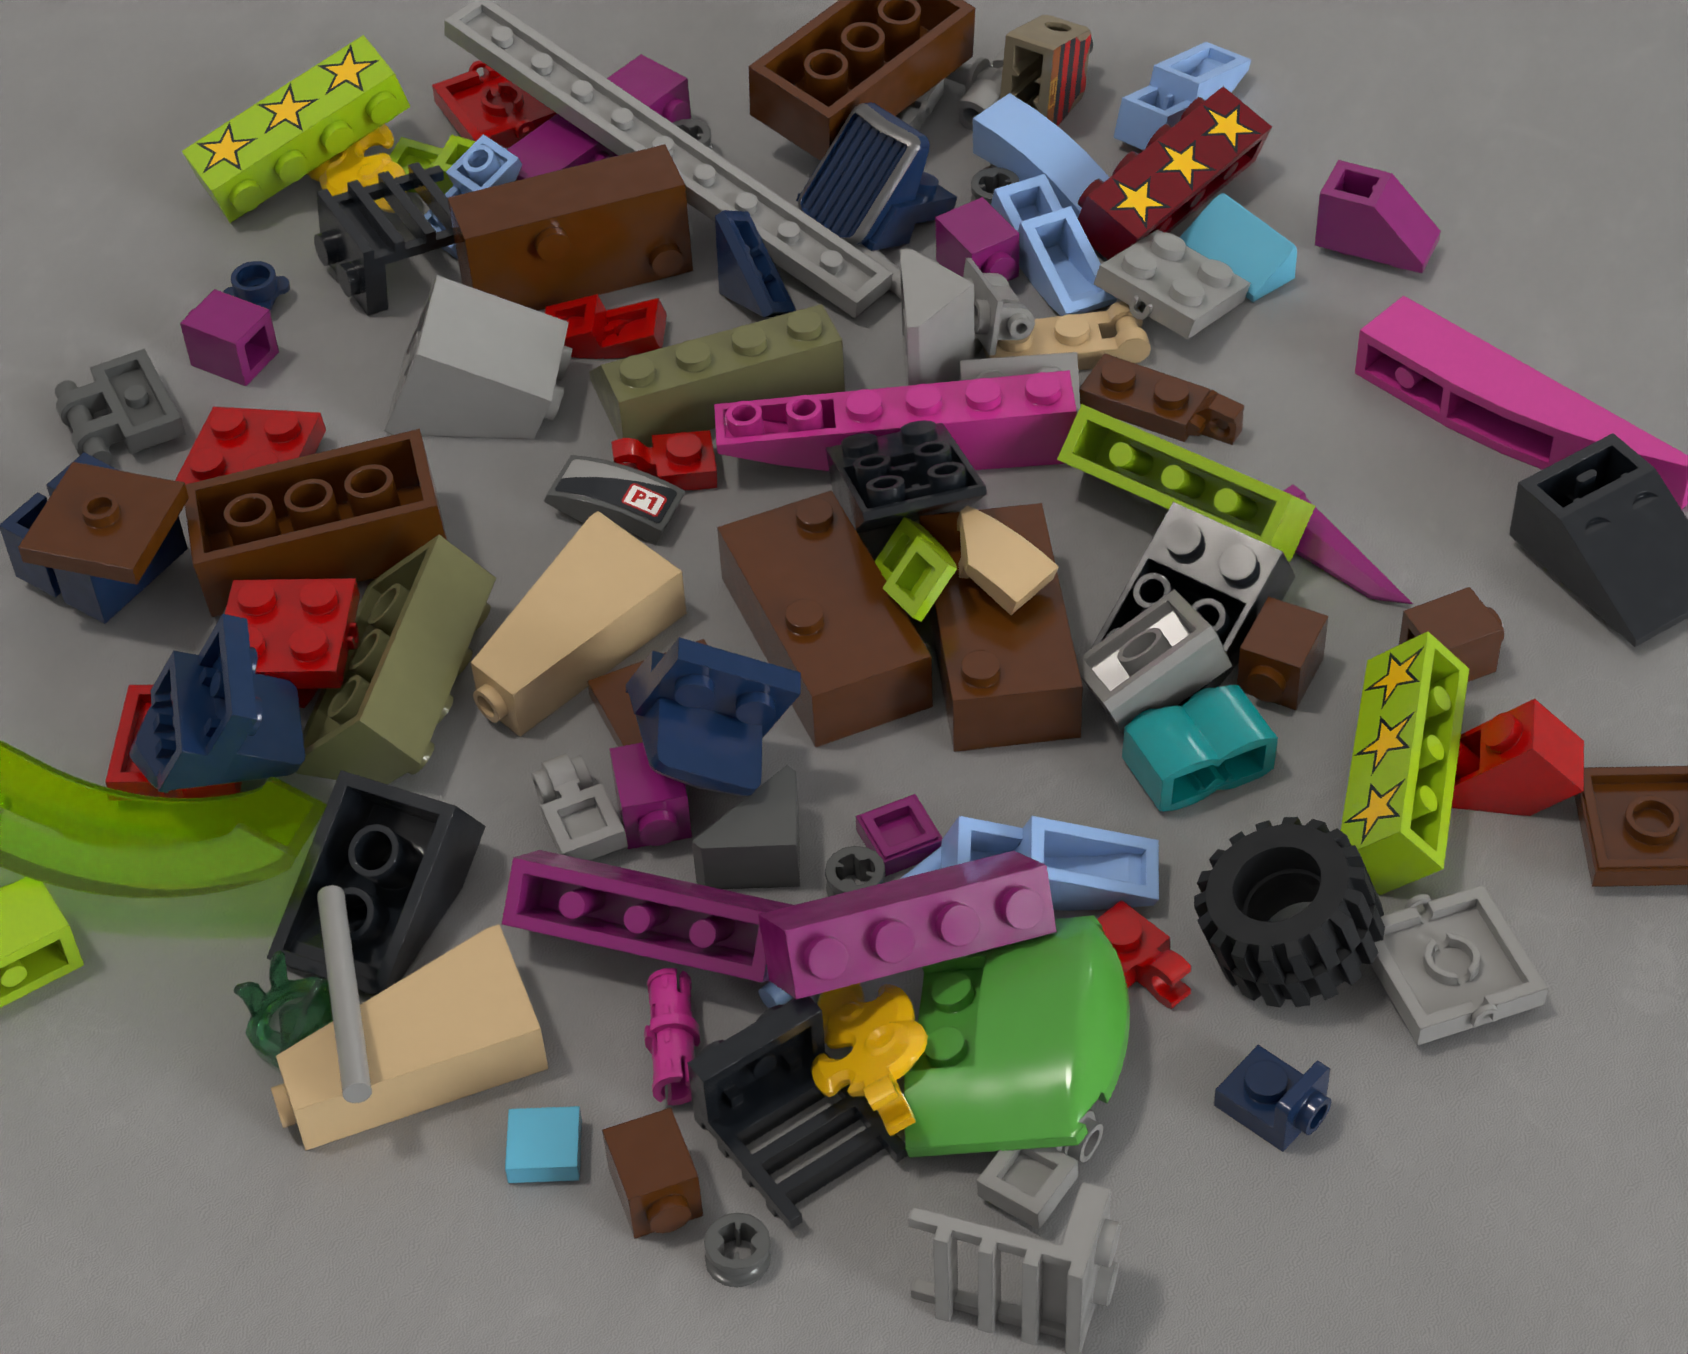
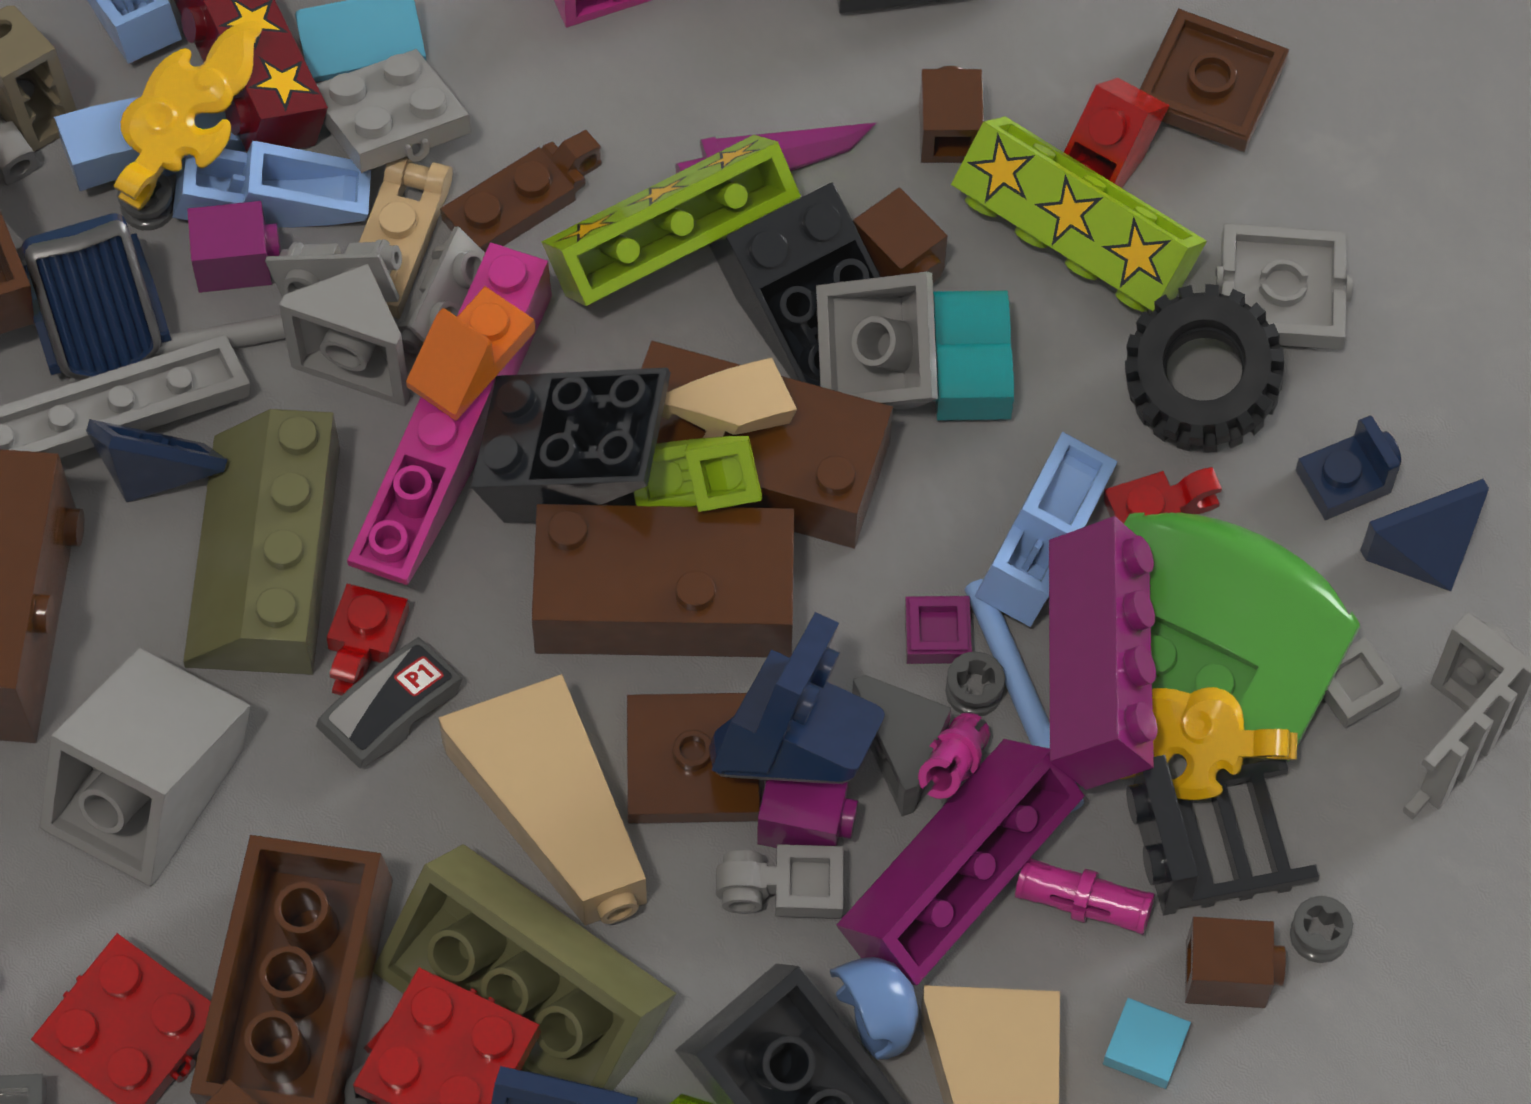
camera: 70 degrees left, 15 degrees up
(463, 898) = (883, 1004): none -> medium blue hair
(612, 332) = (133, 618): red slope -> none
(748, 865) = (954, 755): none -> dark pink pin
(932, 384) = (468, 351): none -> orange slope
(1045, 144) = (163, 118): none -> yellow piece
(1242, 1190) = (1428, 537): none -> dark blue slope

